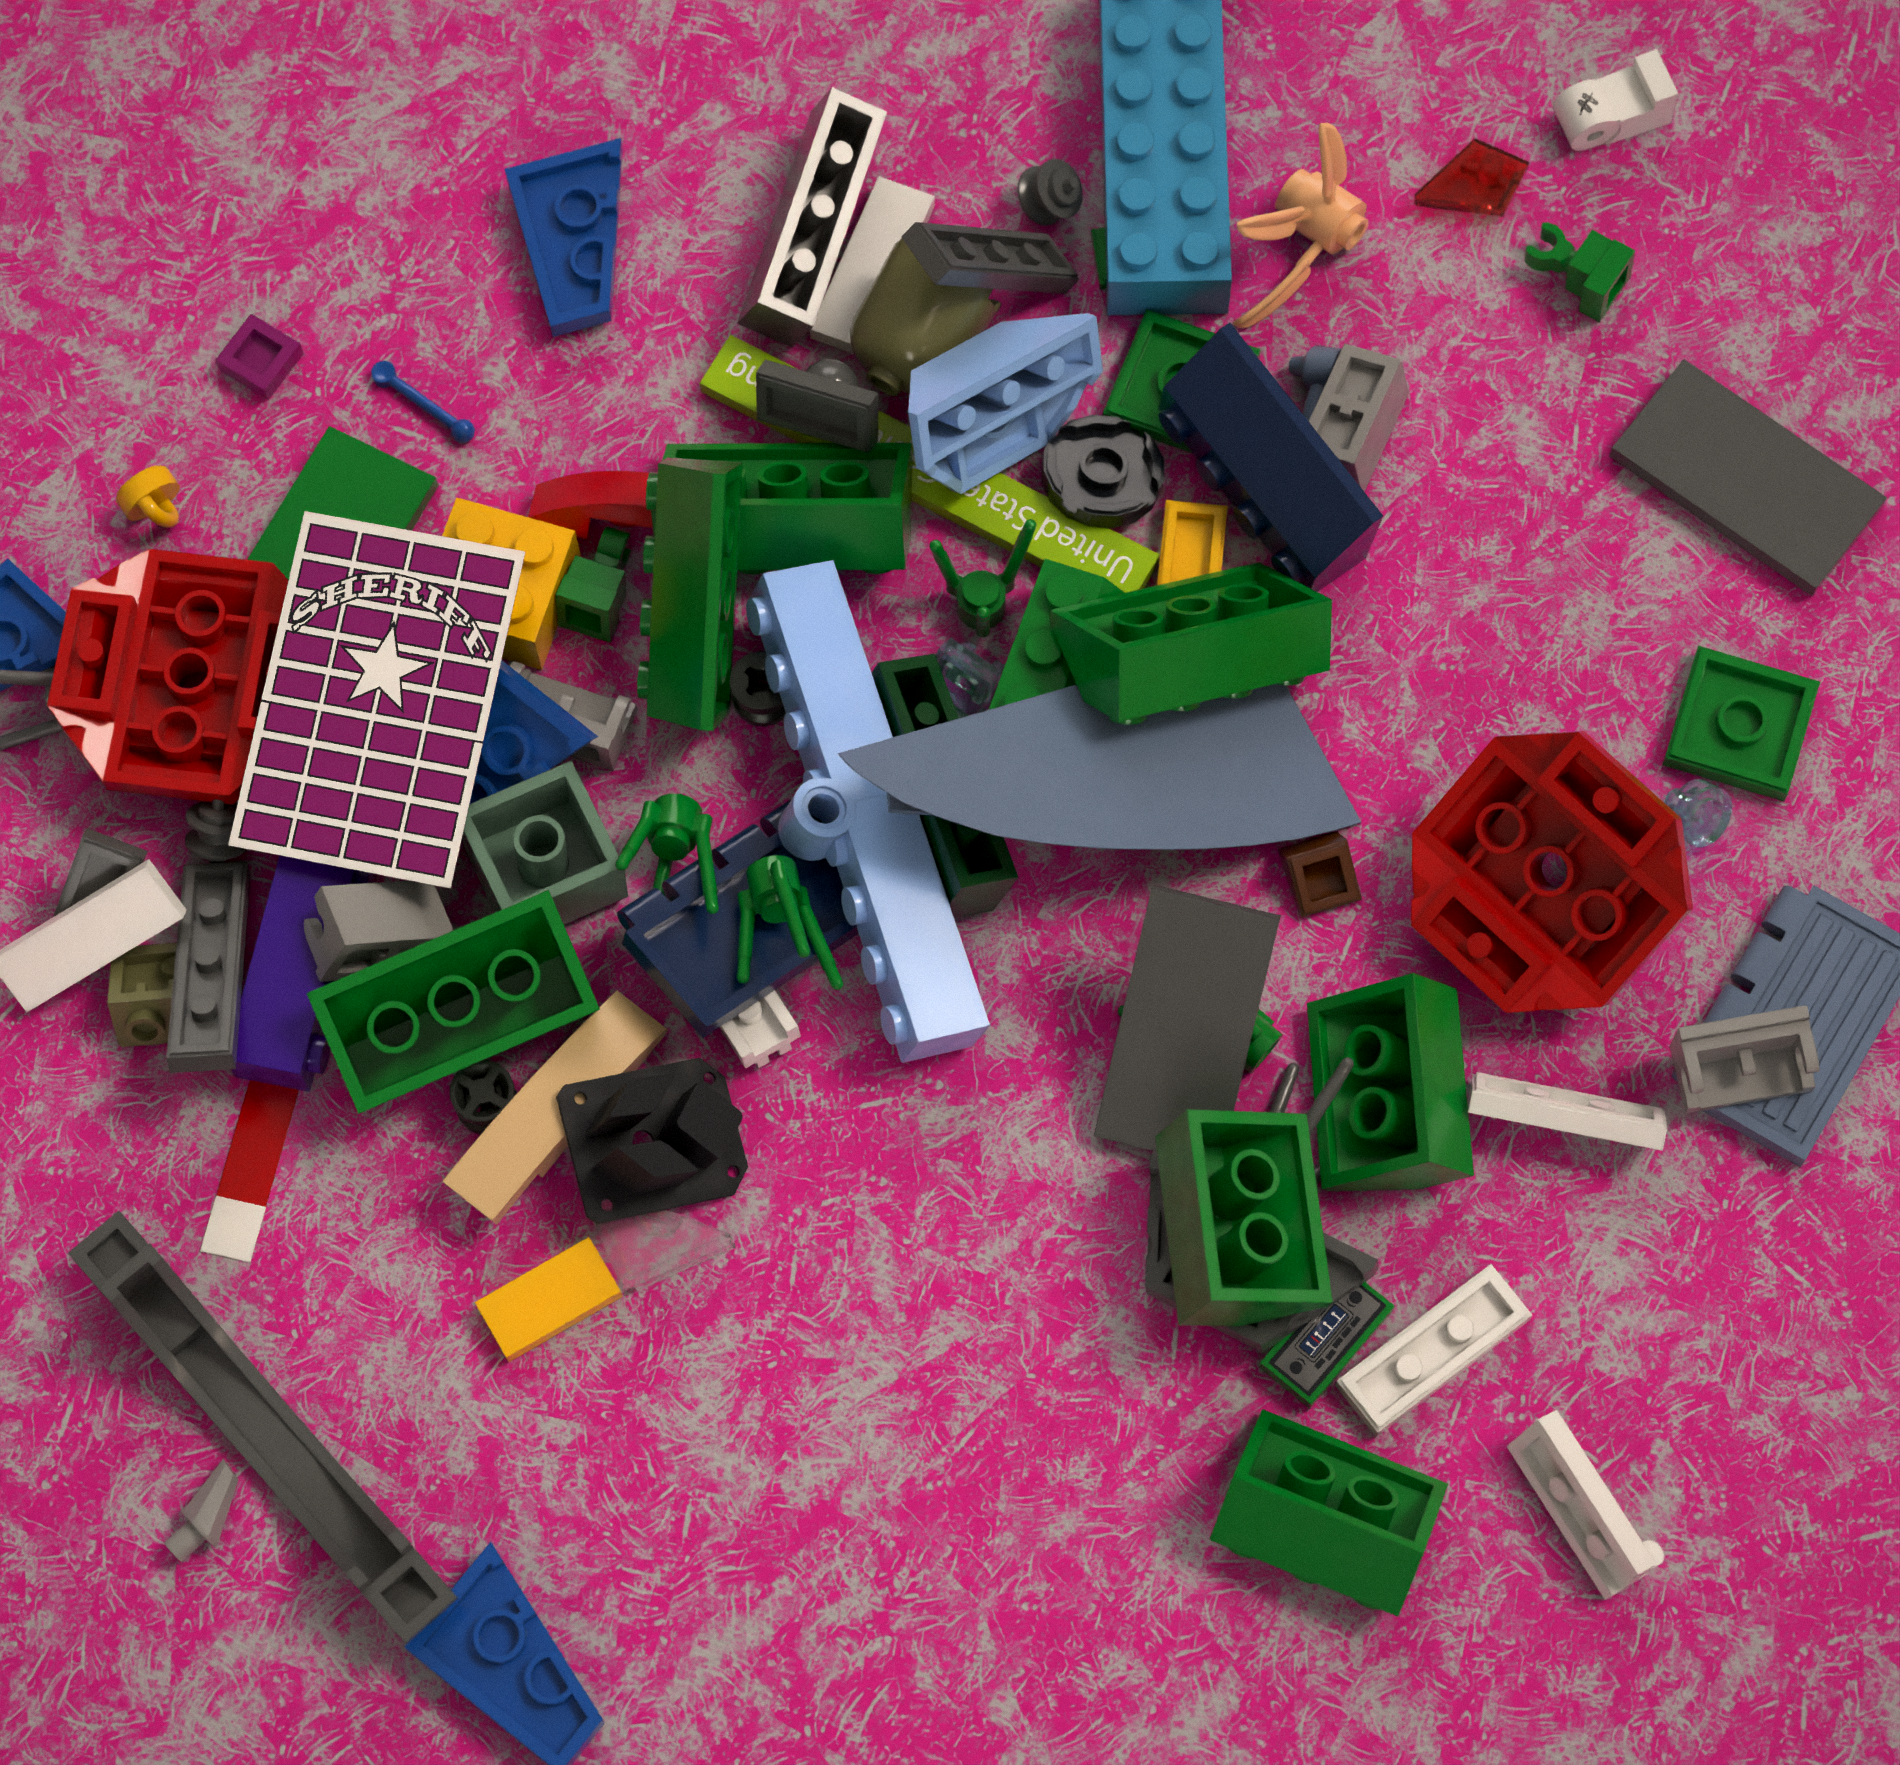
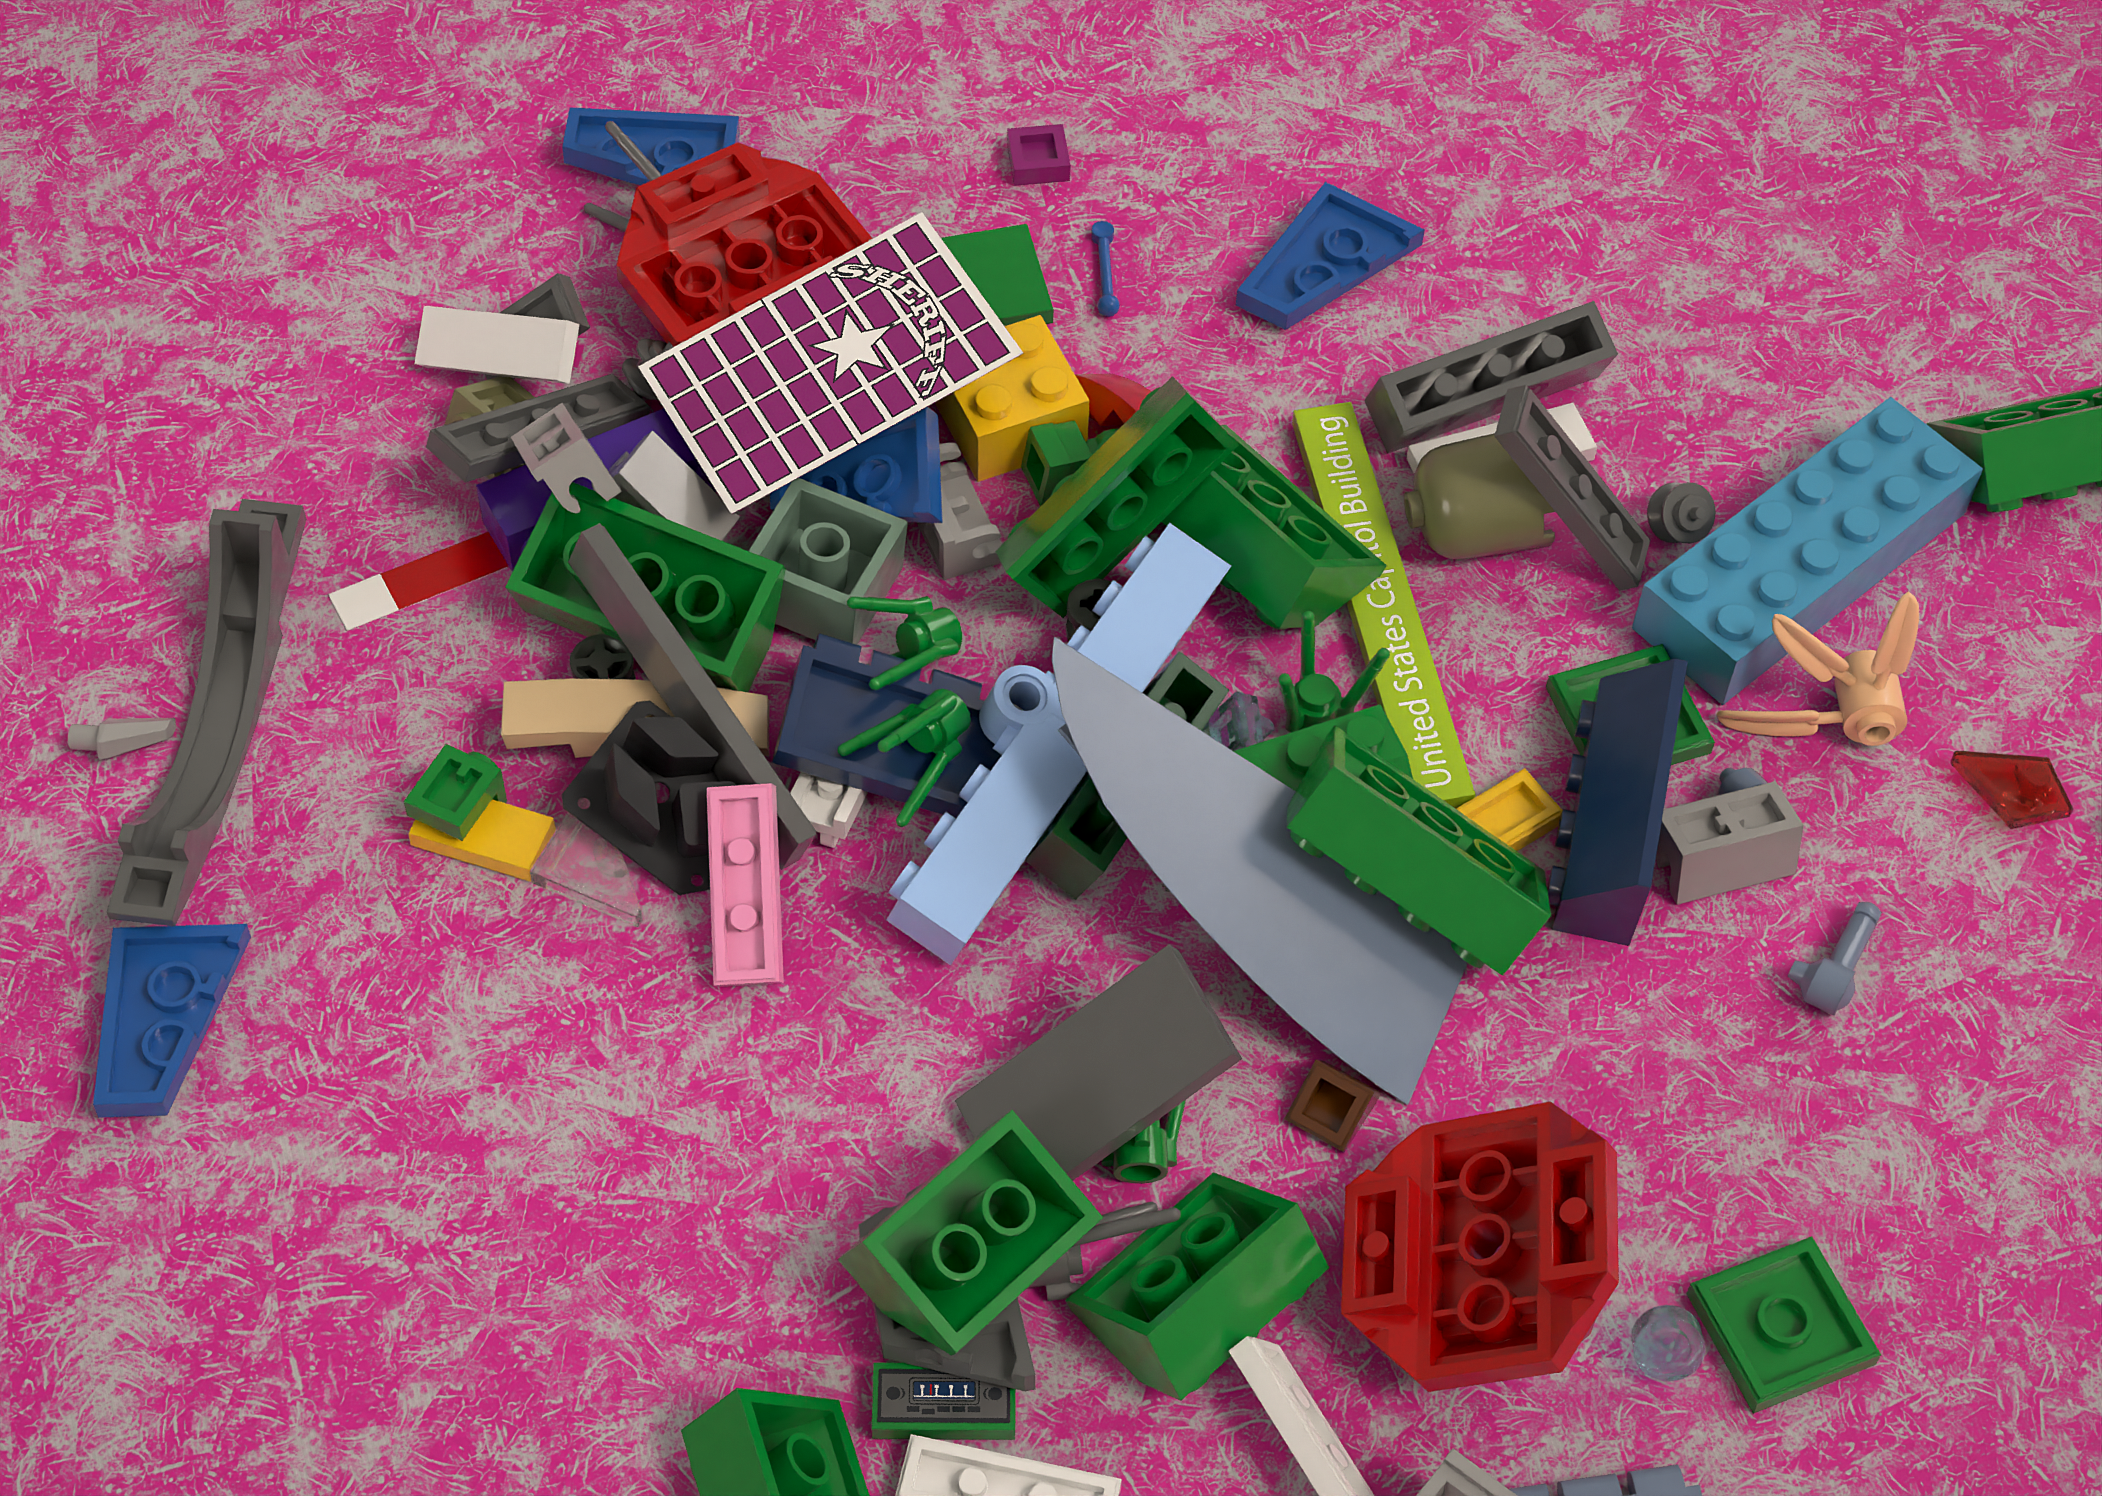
camera: 45 degrees right, 15 degrees down
(150, 496) = (867, 162): yellow tile -> none
(293, 977) = (561, 453): none -> light grey hinge
(509, 1293) = (455, 791): none -> green bracket
(593, 1050) = (682, 679): none -> dark grey tile
(791, 1142) = (745, 885): none -> bright pink tile
(819, 402) = (1349, 480): dark grey tile -> none
(1000, 396) = (1469, 581): light blue wedge -> none
(1102, 471) = (1501, 709): black tile -> none
(1520, 451) = (1830, 981): none -> sand blue piece
(1593, 272) = (2039, 919): green piece -> none
(1748, 477) = (1996, 1170): dark grey tile -> none

